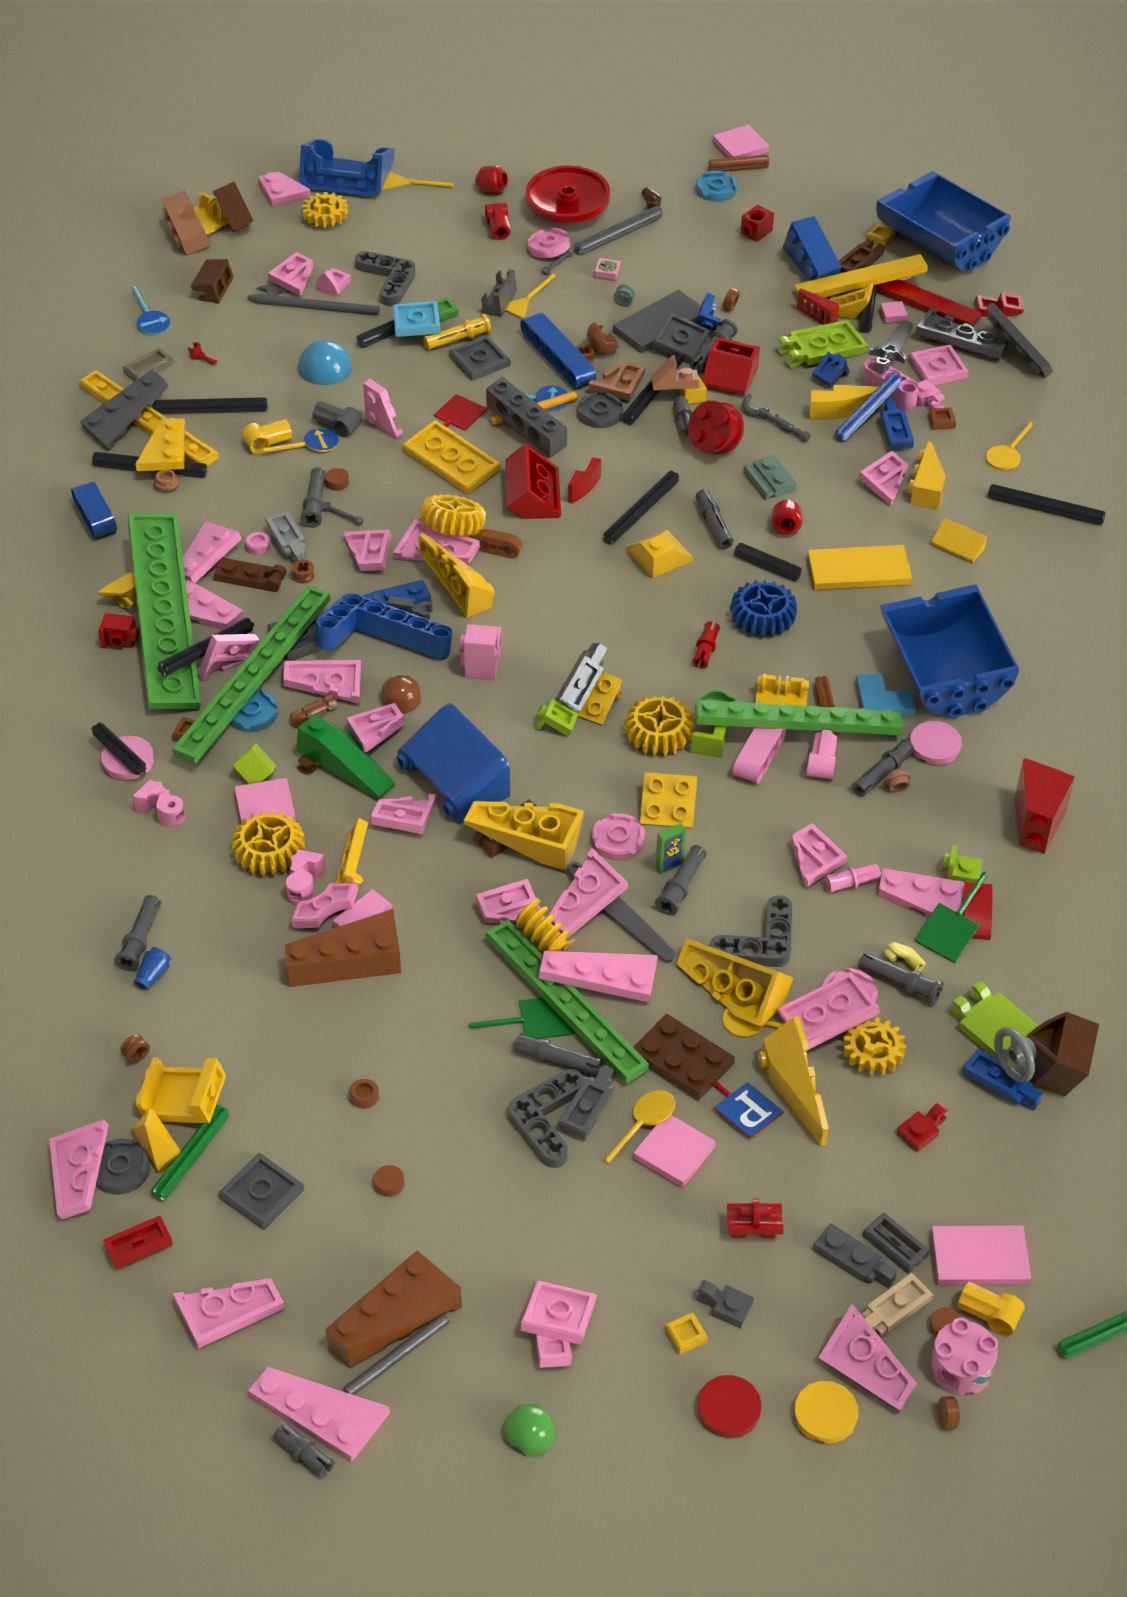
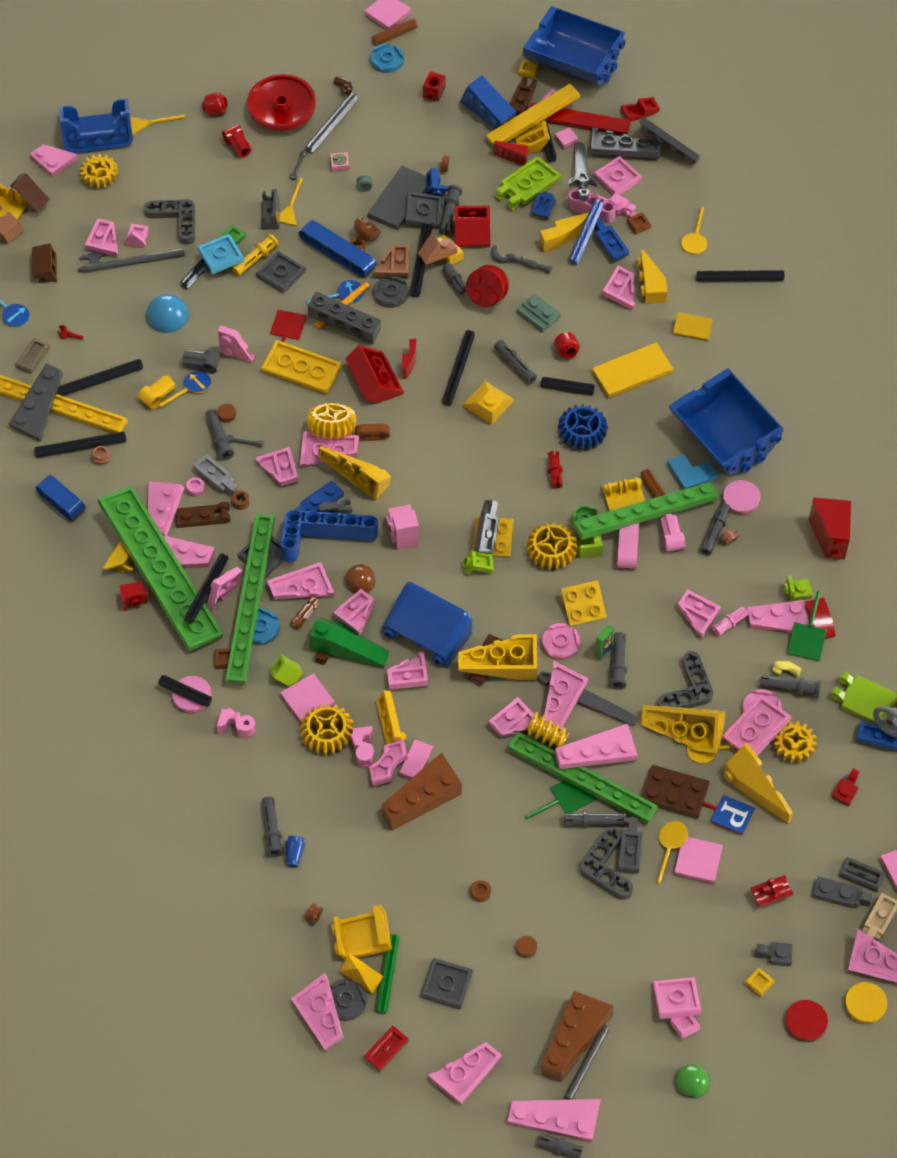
camera: 20 degrees left, 10 degrees up
(165, 447) = (88, 427): yellow wing -> none
(549, 243) = (285, 151): bright pink tile -> none

